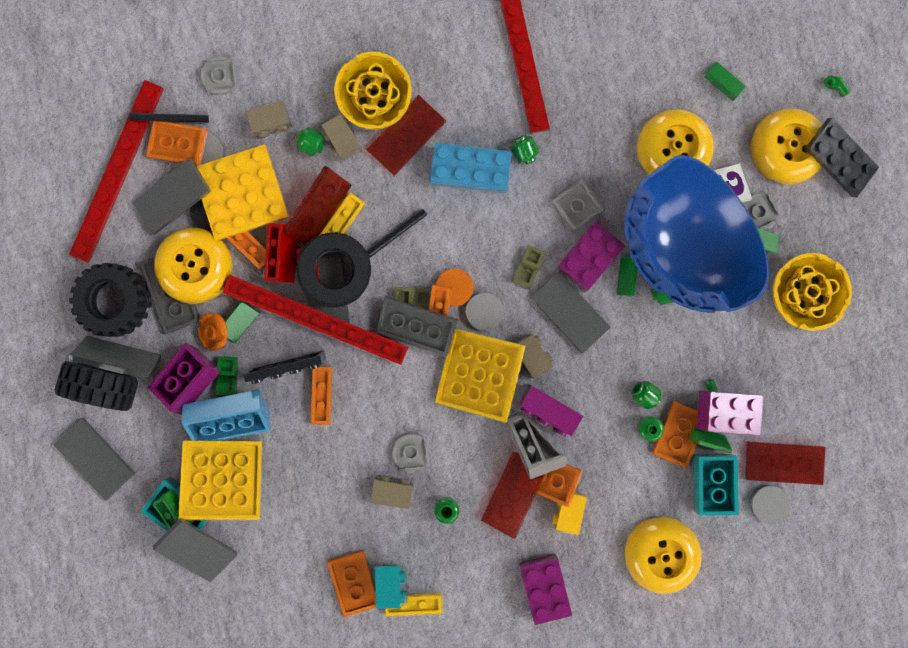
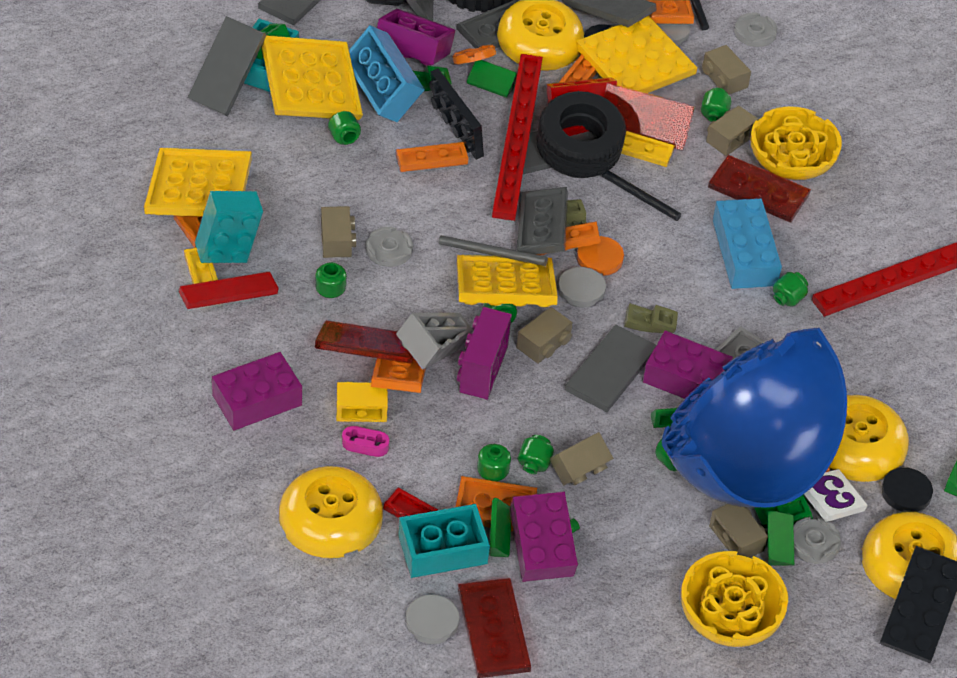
camera: 70 degrees right, 40 degrees down
(277, 461) = (344, 127): none -> green head
(318, 594) = (187, 176): none -> yellow plate
(438, 374) = (493, 250): none -> dark grey axle
(438, 591) = (228, 290): none -> red tile
(608, 517) = (365, 441): none -> dark pink beam
(661, 363) = (580, 459): none -> dark tan brick
(672, 495) = (405, 504): none -> red tile
(729, 128) = (907, 489): none -> black tile

